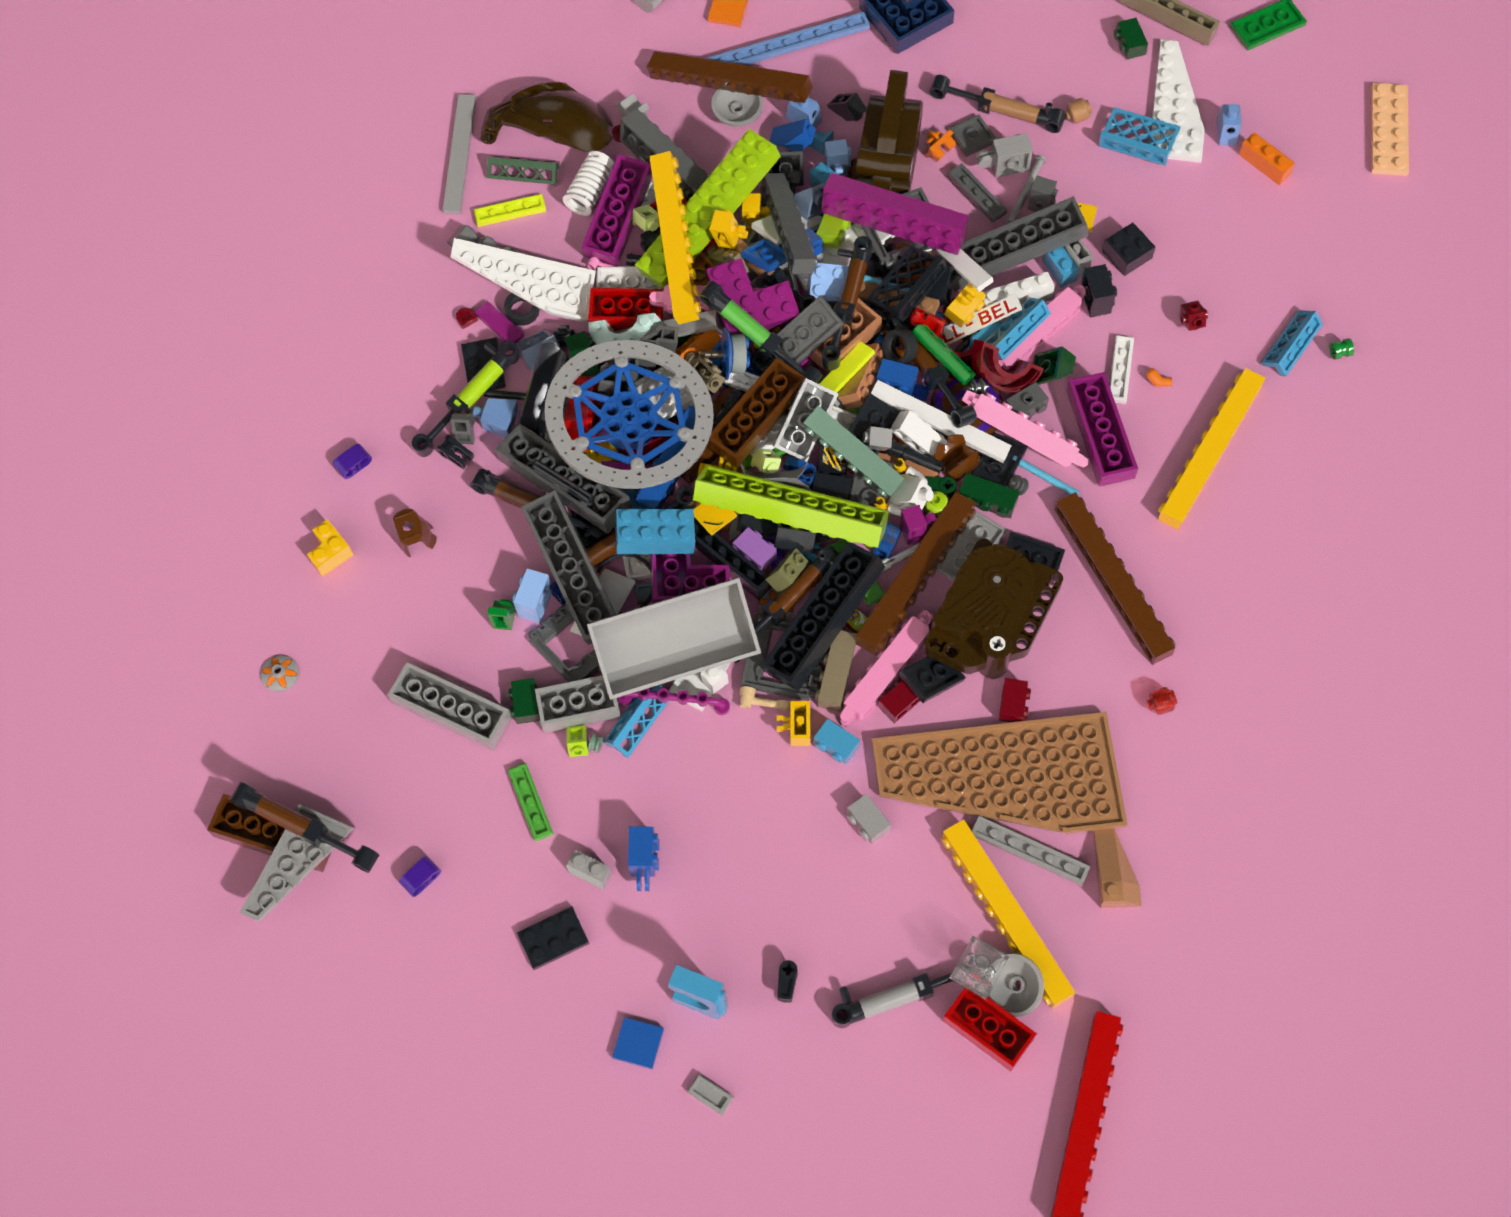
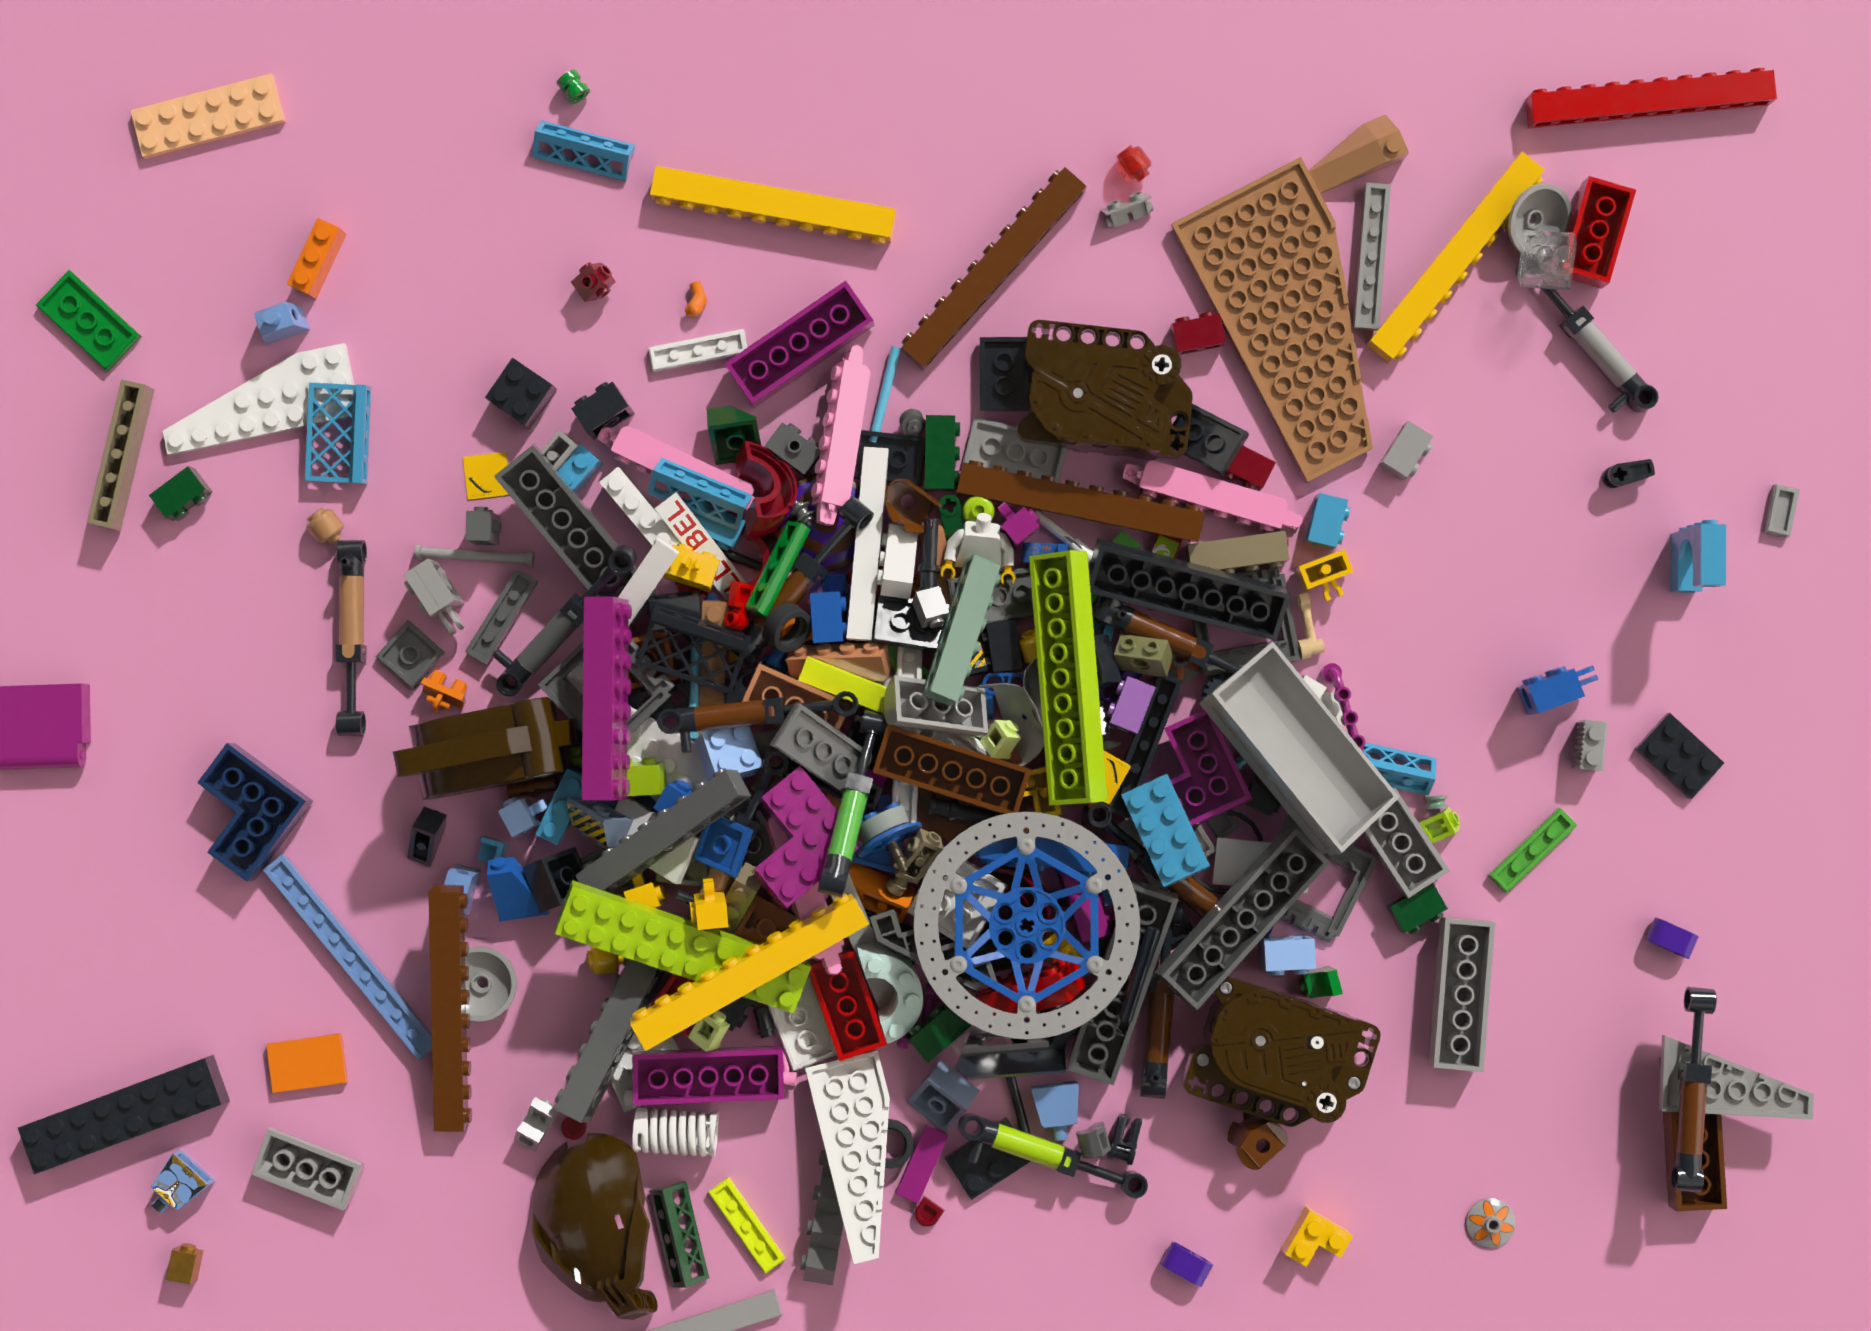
camera: 110 degrees left, 20 degrees up
(467, 562) = (1280, 1053): none -> dark brown piece
(563, 332) = (913, 1069): black gear -> none
(638, 1043) = (1757, 611): blue tile -> none
(940, 196) = (557, 629): none -> piece
(1128, 679) = (1118, 210): none -> light grey hinge

